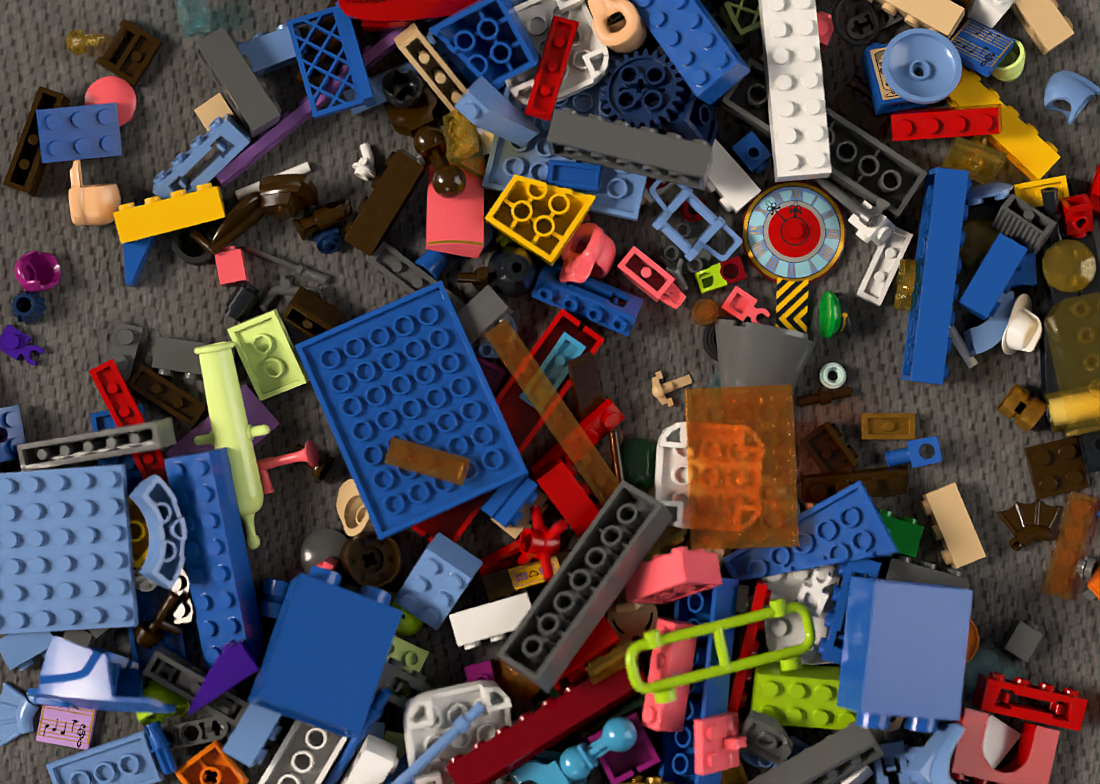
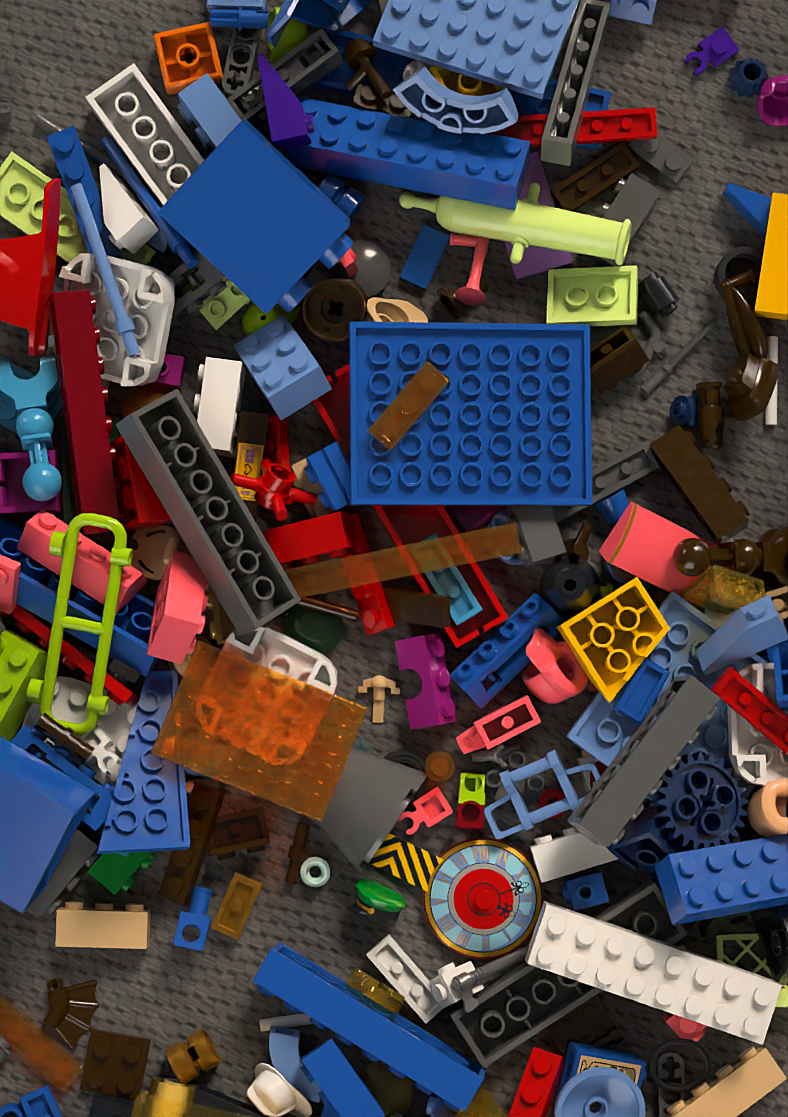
camera: 105 degrees right, 0 degrees up
(231, 266) = (700, 299): coral brick -> none
(294, 507) = (424, 257): none -> blue tile
(364, 168) = (745, 480): white plate -> none
(602, 667) = (118, 493): clear yellow plate -> none
(622, 360) = (435, 701): none -> magenta arch
(818, 622) = (64, 738): none -> dark brown pin

